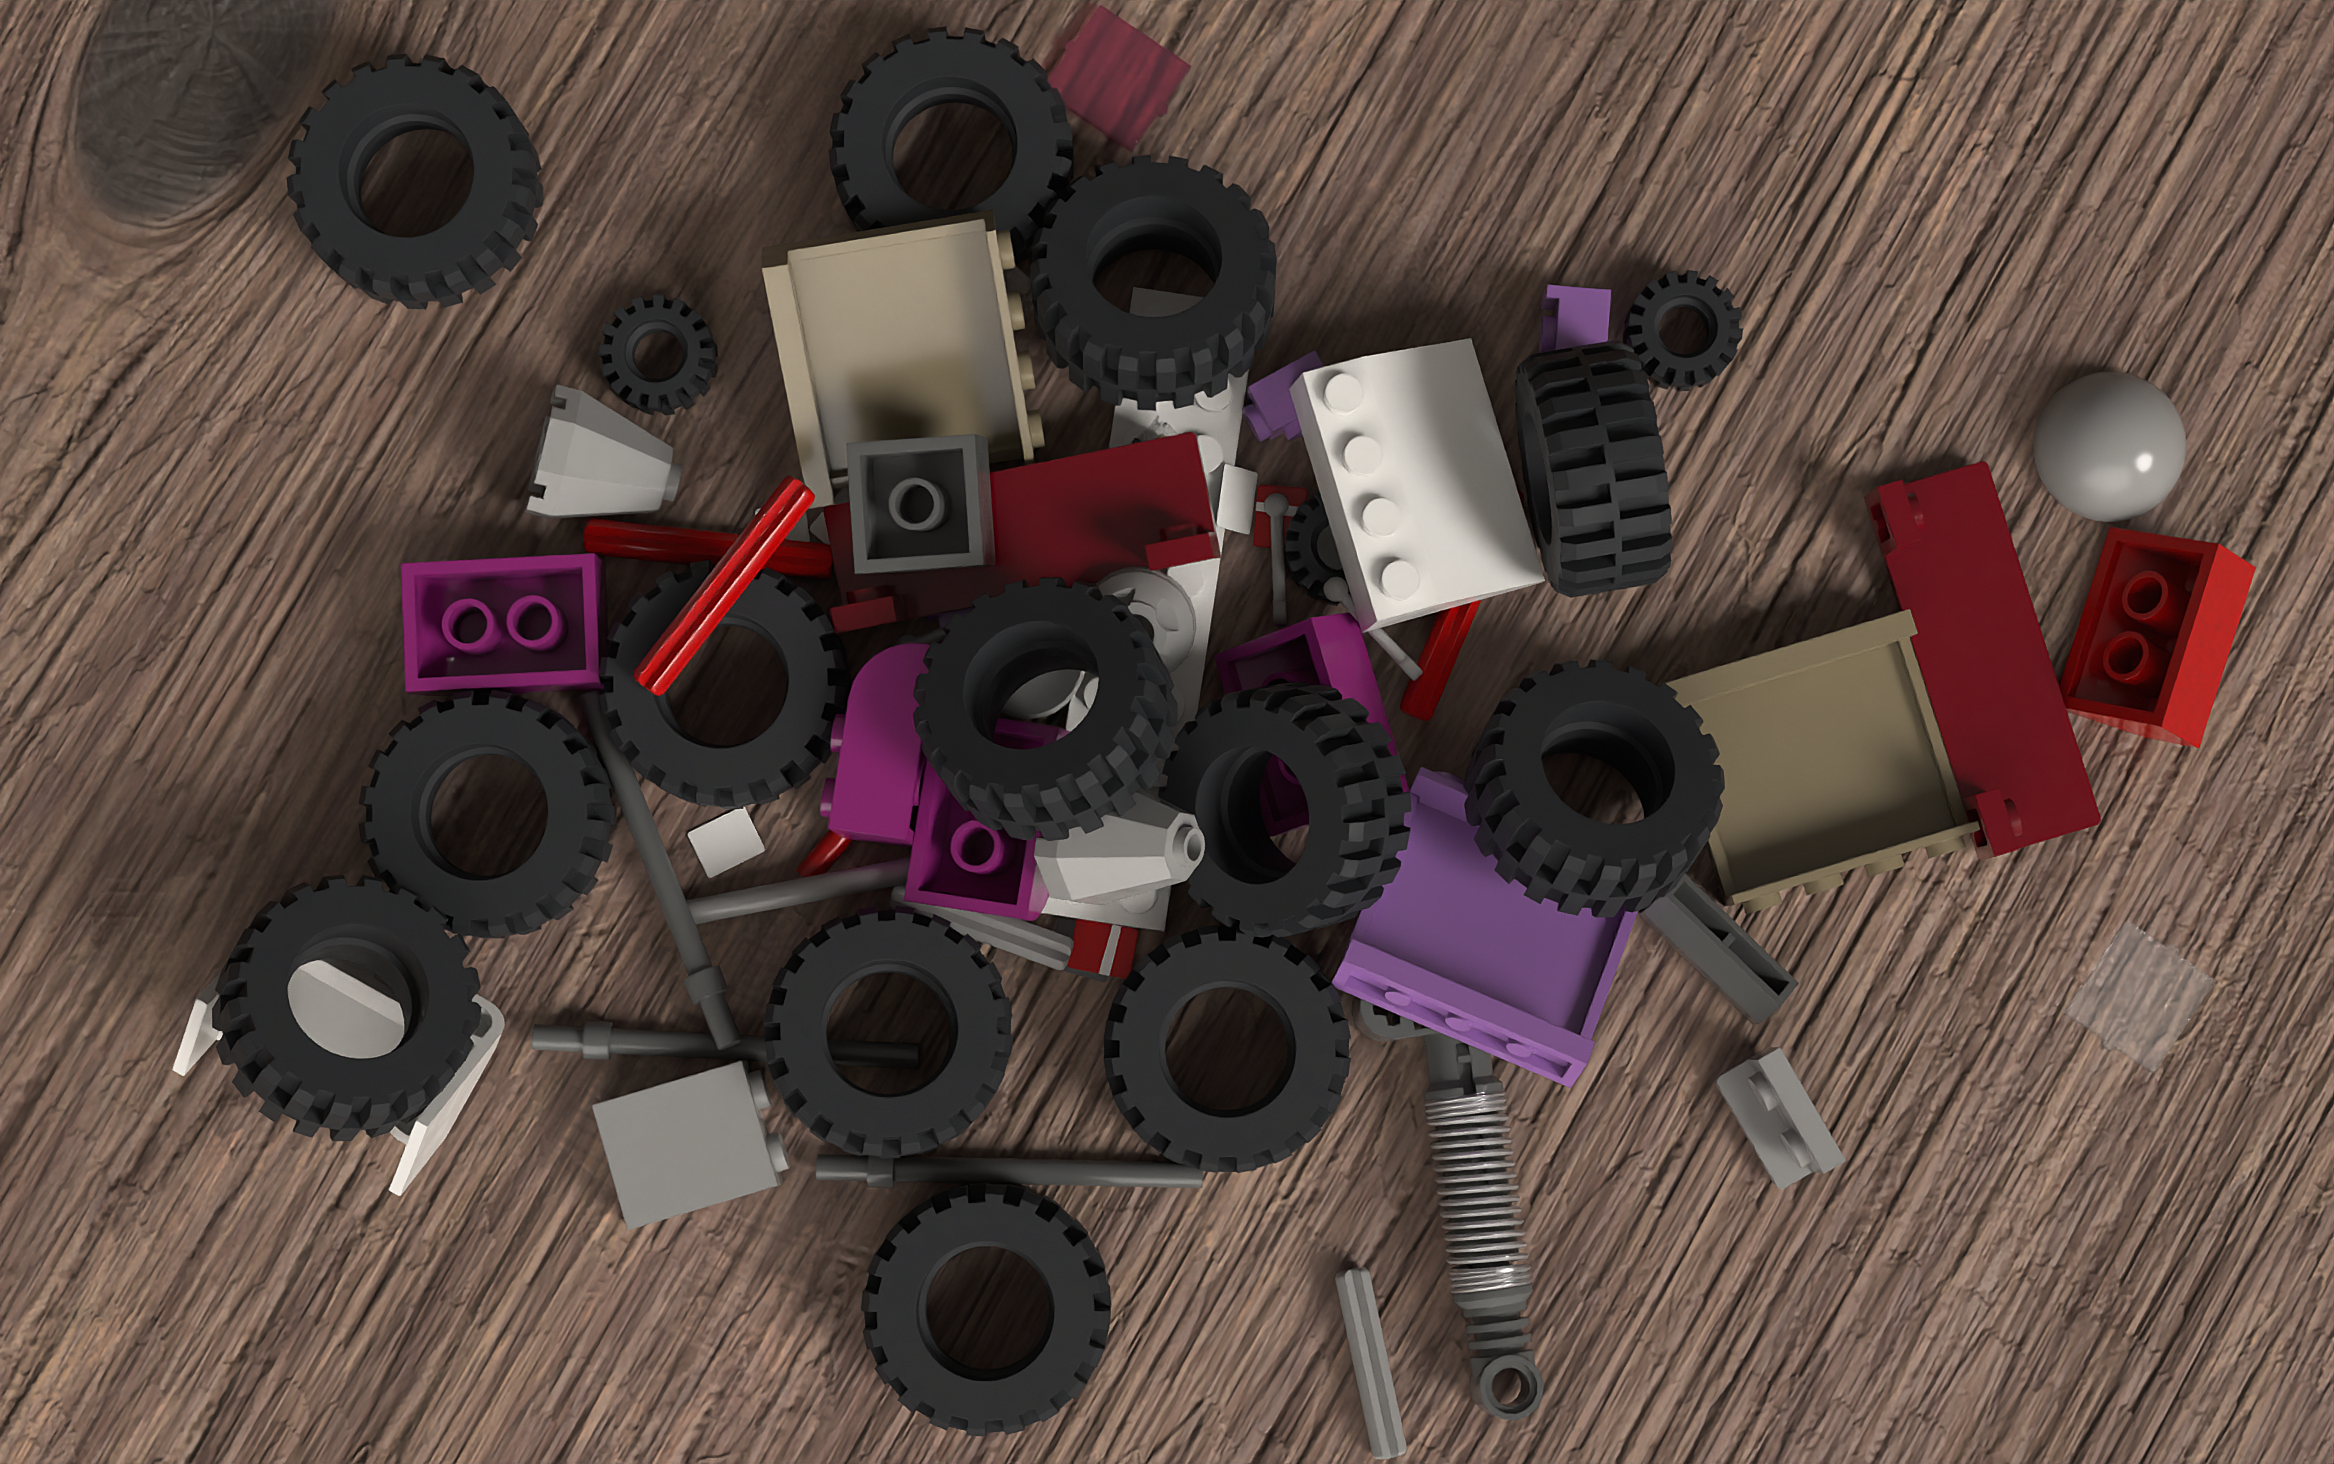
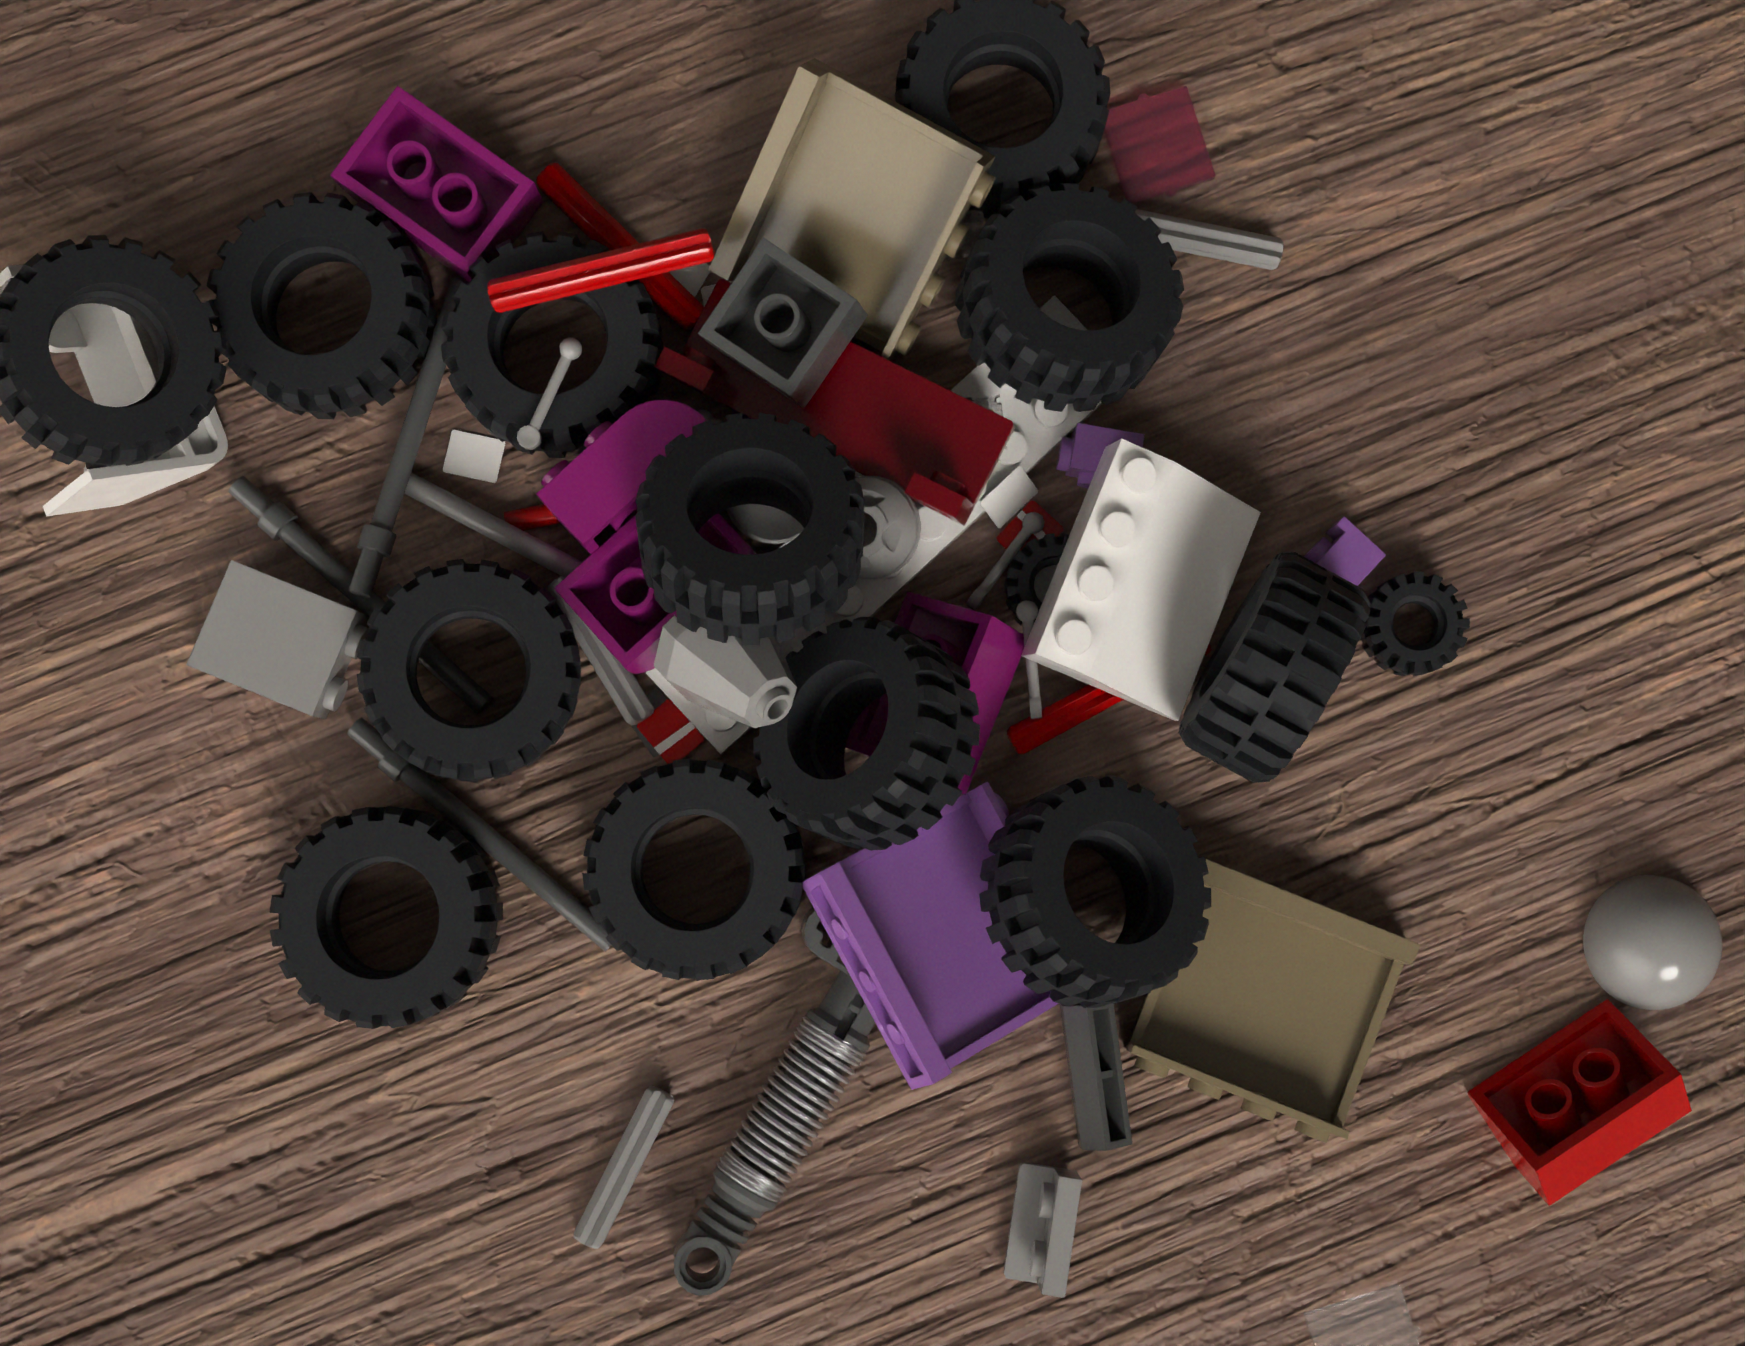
camera: 40 degrees right, 0 degrees up
(597, 462) = (588, 124): light grey cone -> none
(647, 318) = (692, 56): black tyre -> none
(777, 782) = (529, 435): none -> light grey hinge
(1236, 125) = (1217, 241): none -> light grey axle
(1983, 658) = (1444, 1020): dark red bracket -> none

